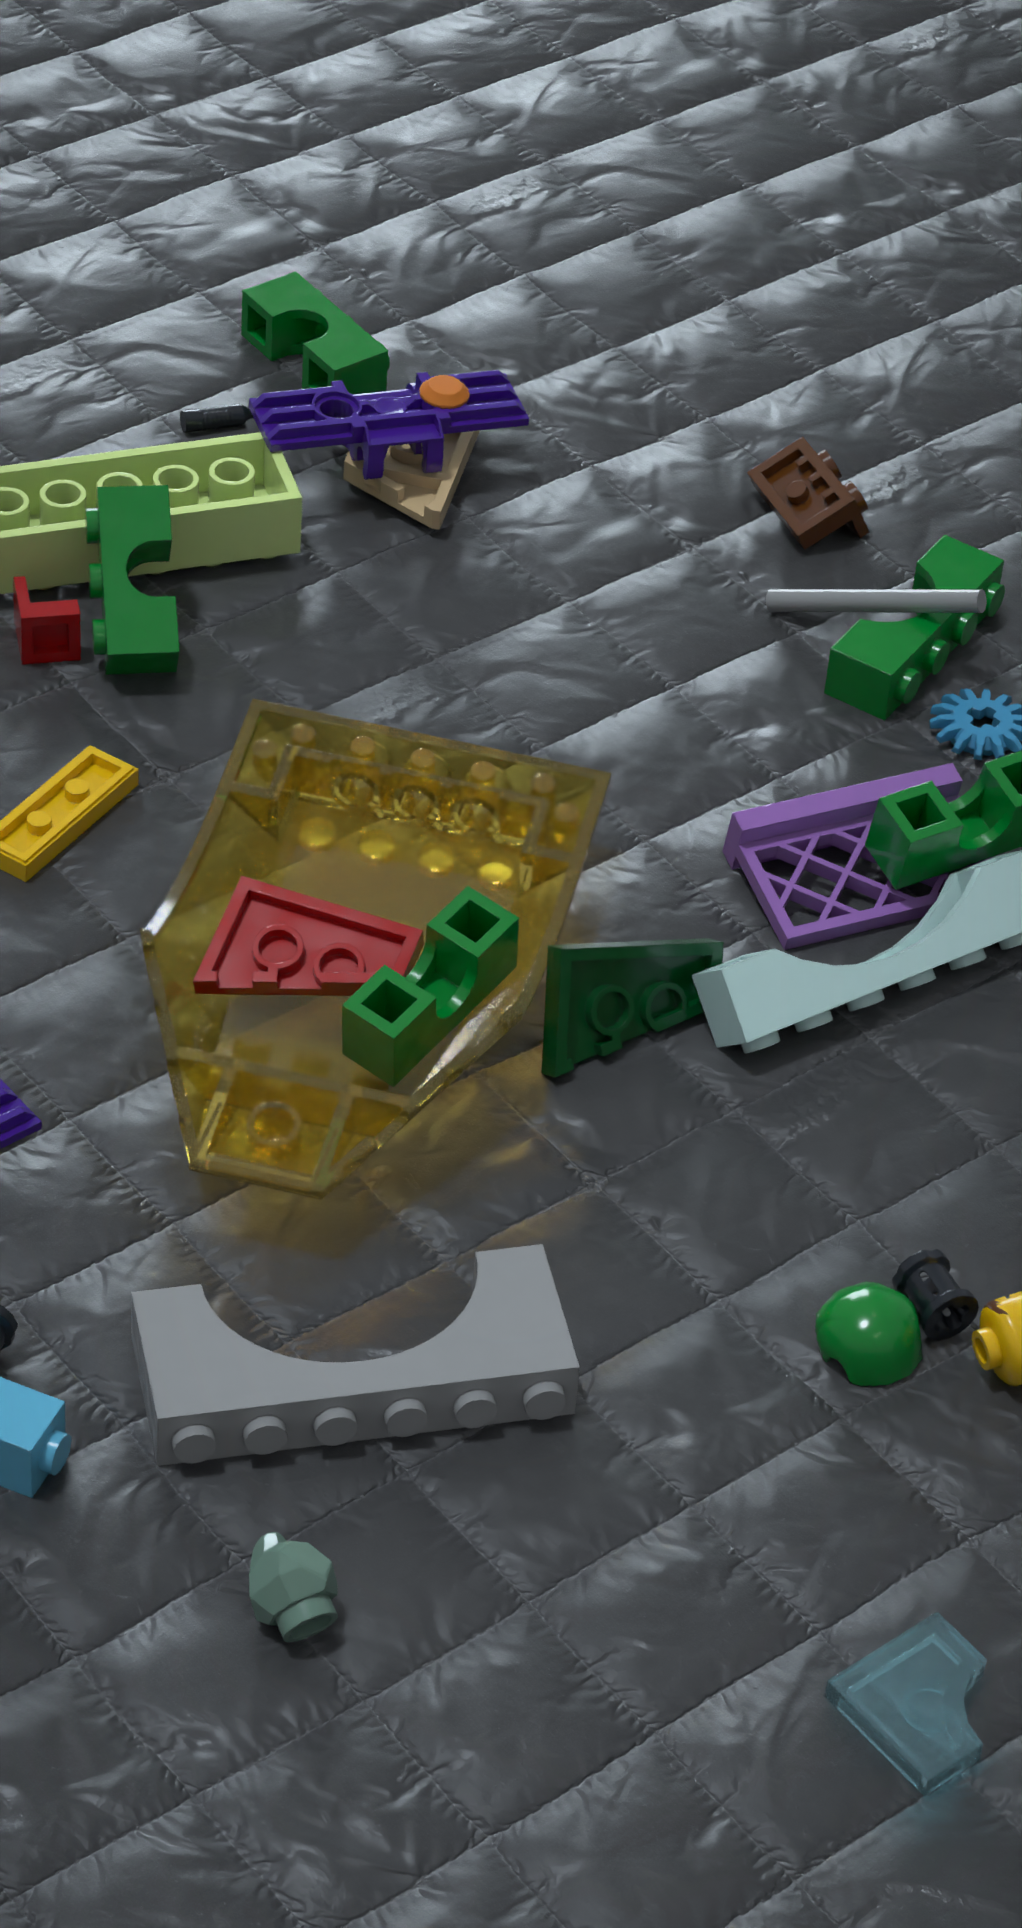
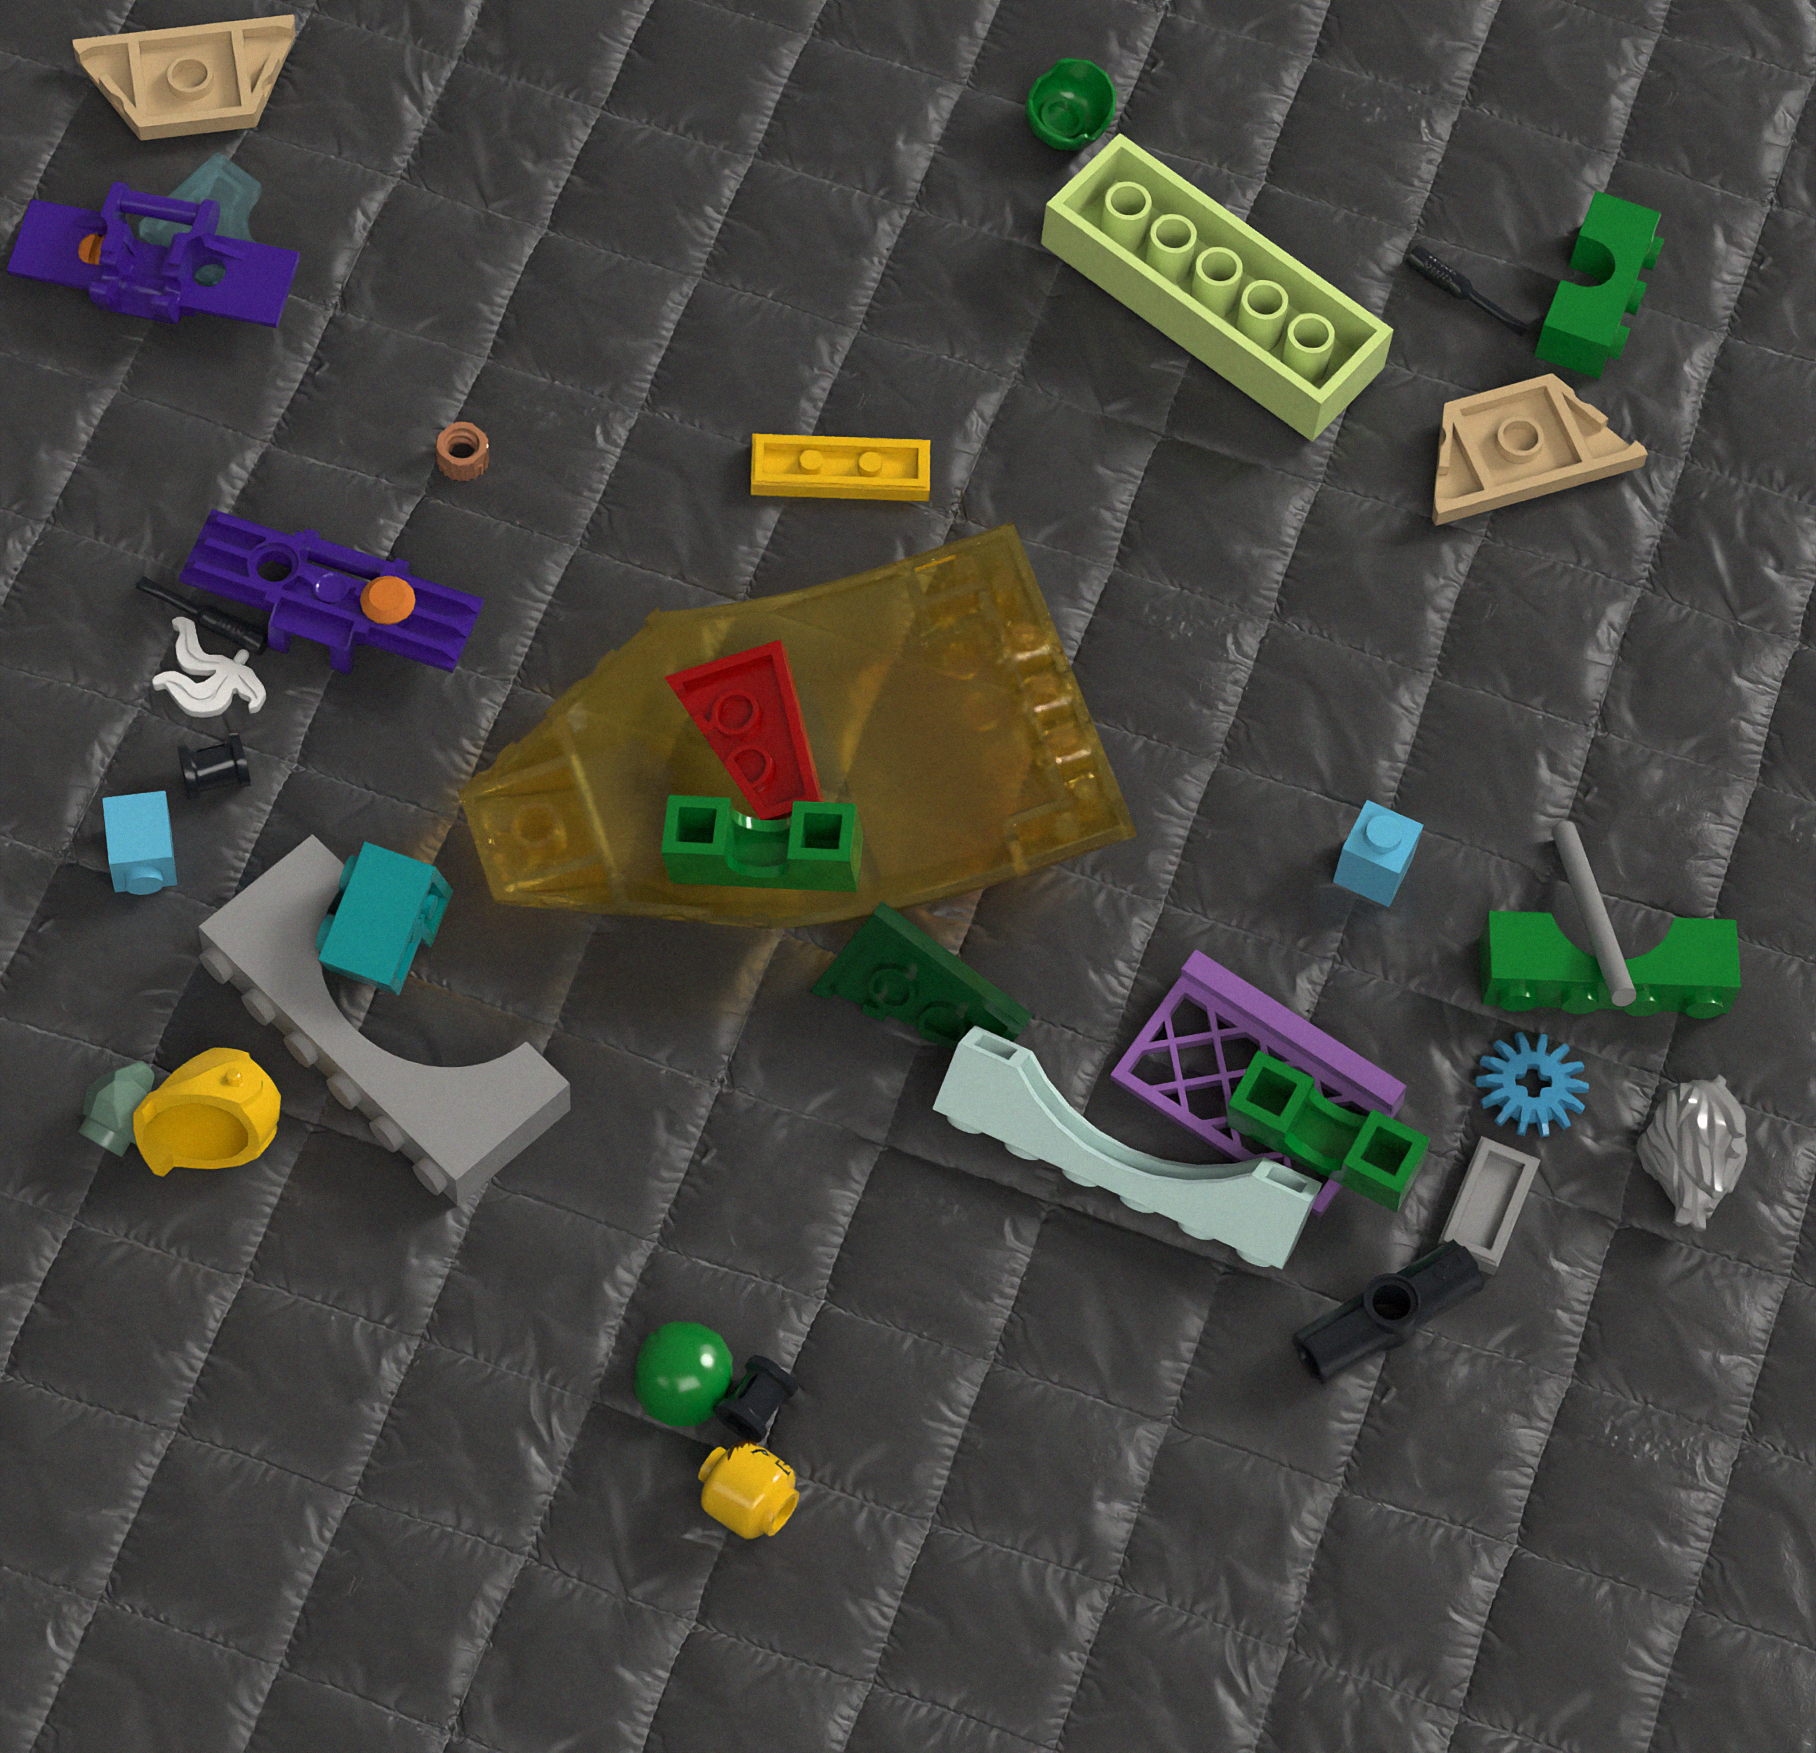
camera: 55 degrees right, 20 degrees up
(46, 629) = (1047, 320): red panel -> none
(135, 629) = (1078, 380): green arch -> none
(272, 1274) = (382, 917): none -> teal brick
(361, 1508) = (208, 1114): none -> yellow helmet
(388, 418) = (1544, 437): dark purple piece -> none
(718, 689) = (1377, 853): none -> medium azure brick
(807, 493) = (1732, 783): reddish brown bracket -> none
(912, 1701) = (316, 1595): clear light blue tile -> none

